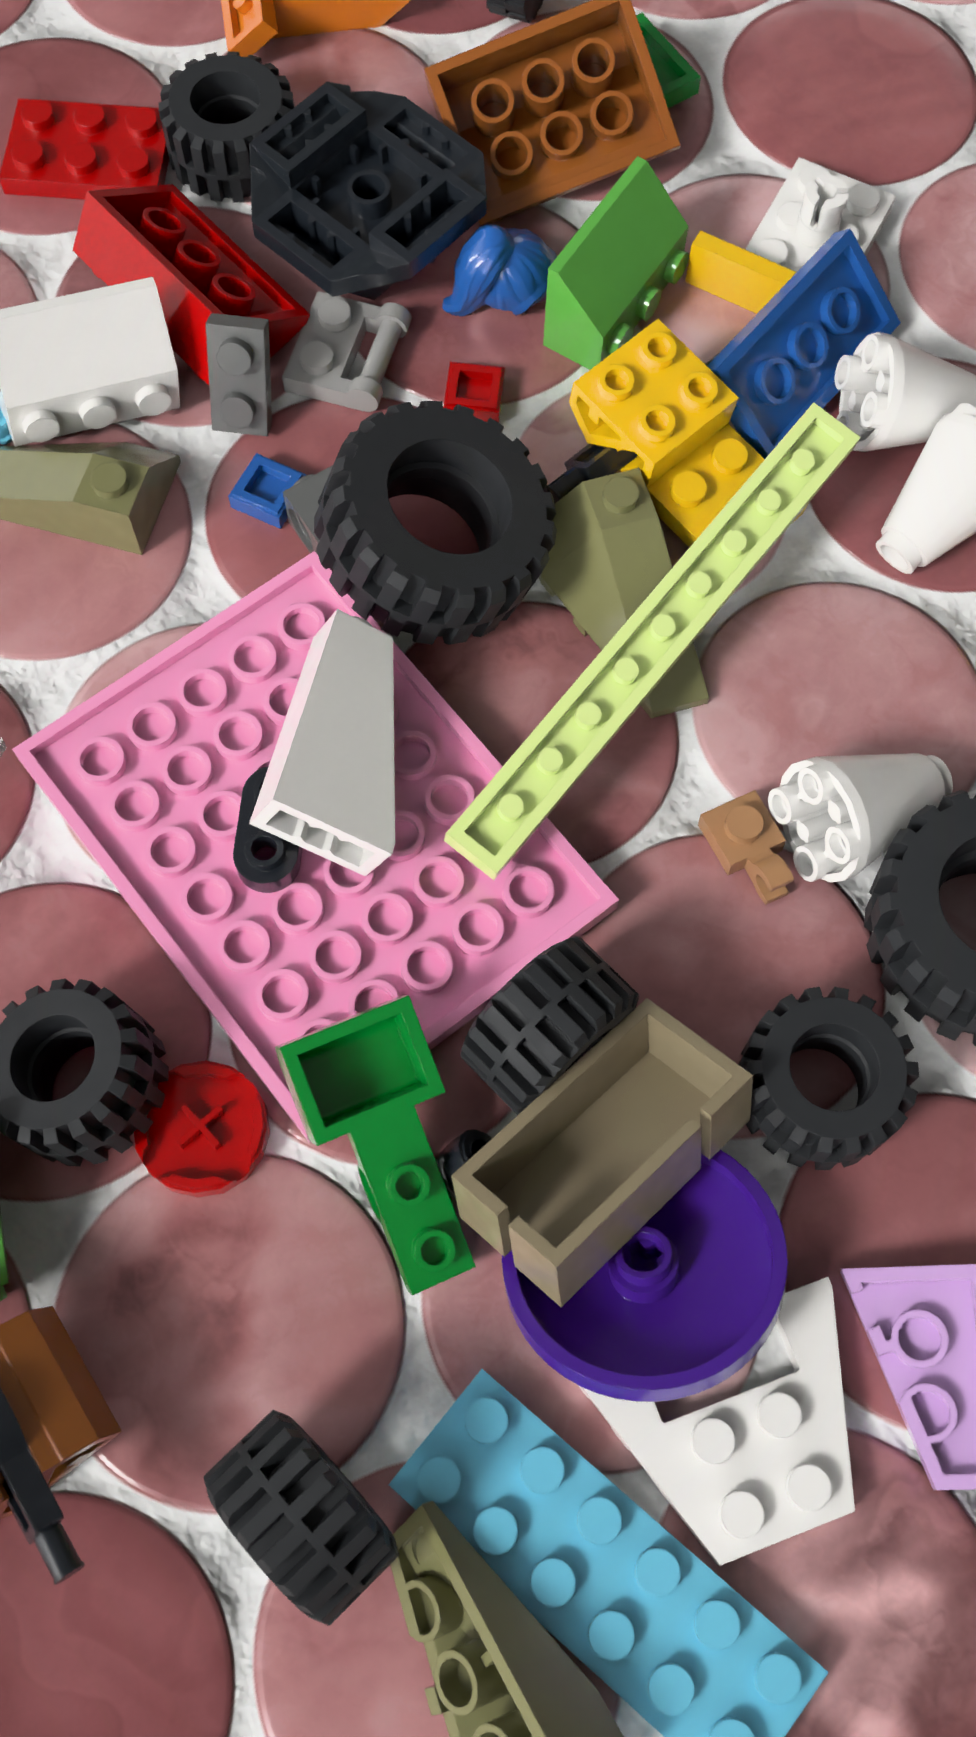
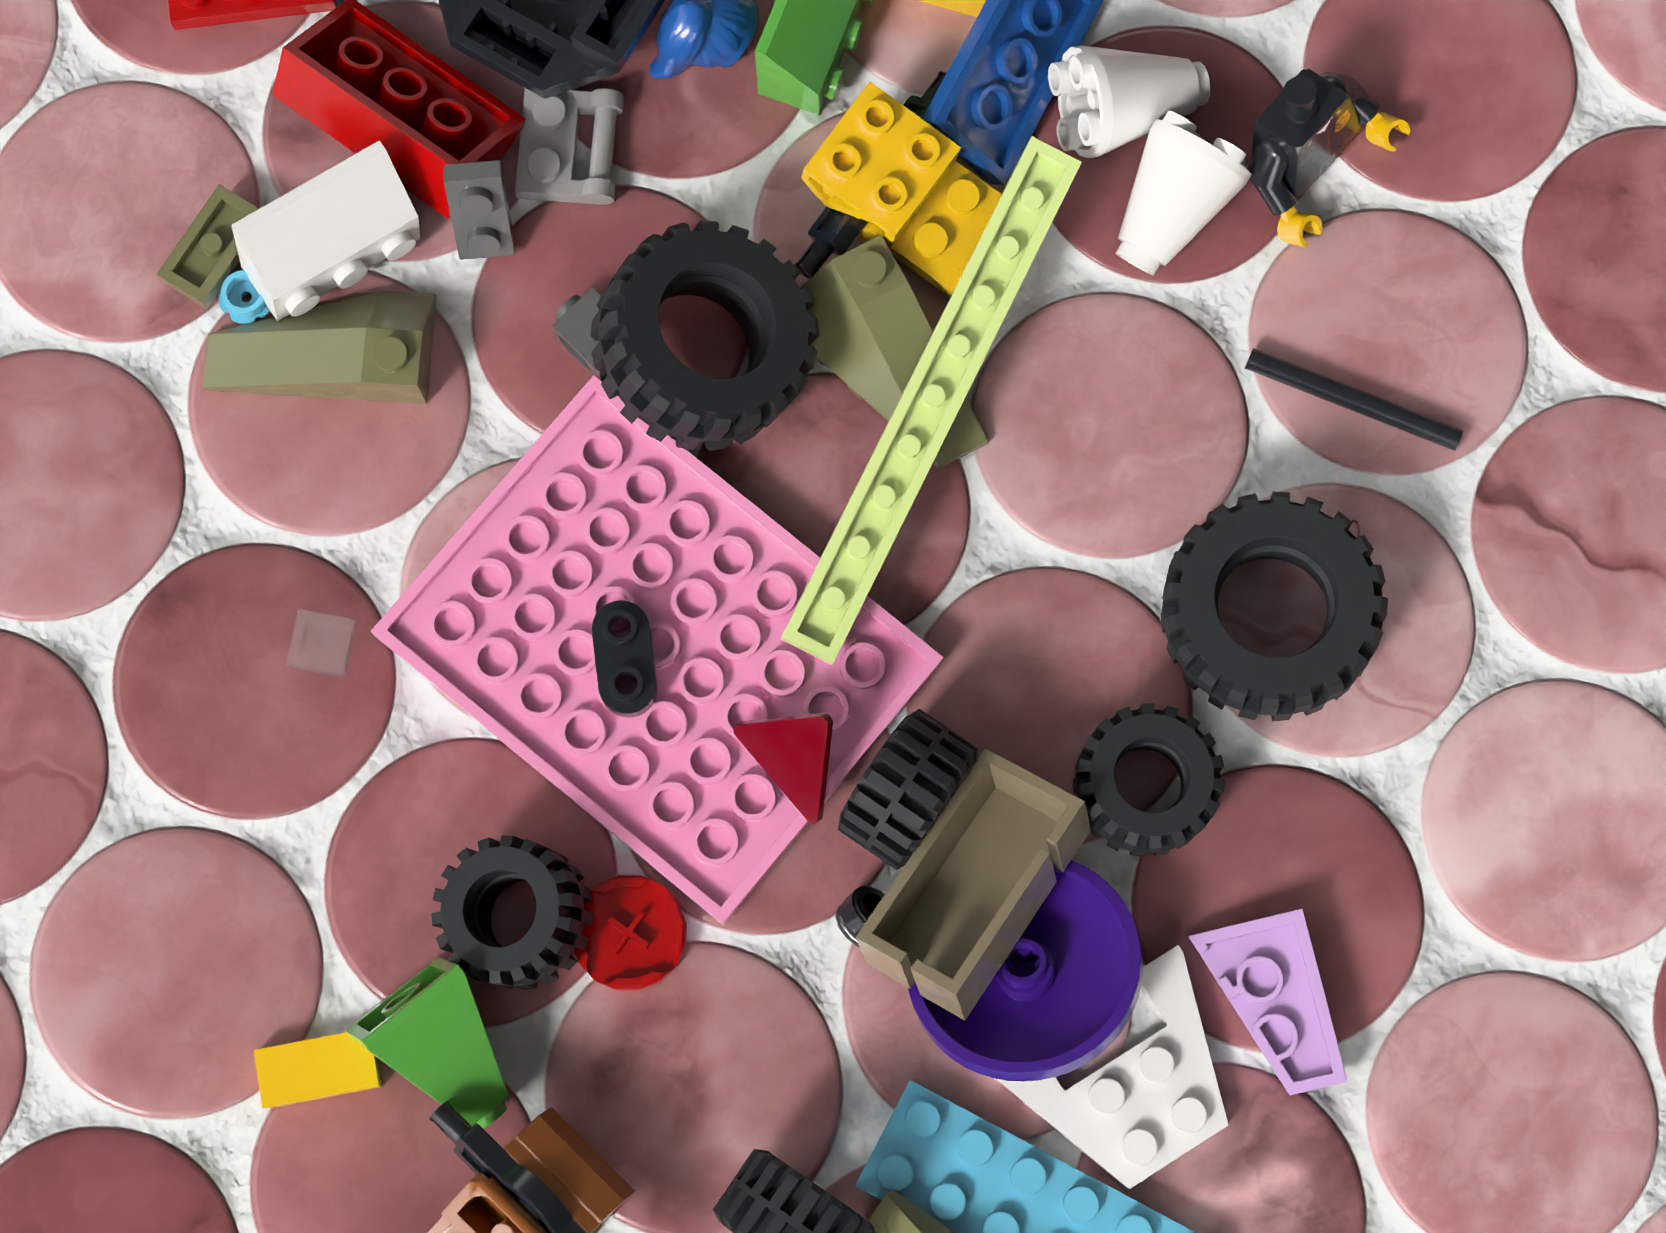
camera: 10 degrees left, 10 degrees up
(261, 490) = (529, 313): blue tile -> none
(335, 753) = (667, 576): white slope -> none
(364, 1083) = (764, 873): green plate -> none
(429, 964) = (793, 755): none -> dark red piece
(475, 388) = (703, 165): red tile -> none
(748, 839) = (1044, 571): medium nougat plate -> none
(850, 808) = (1136, 527): white cone -> none

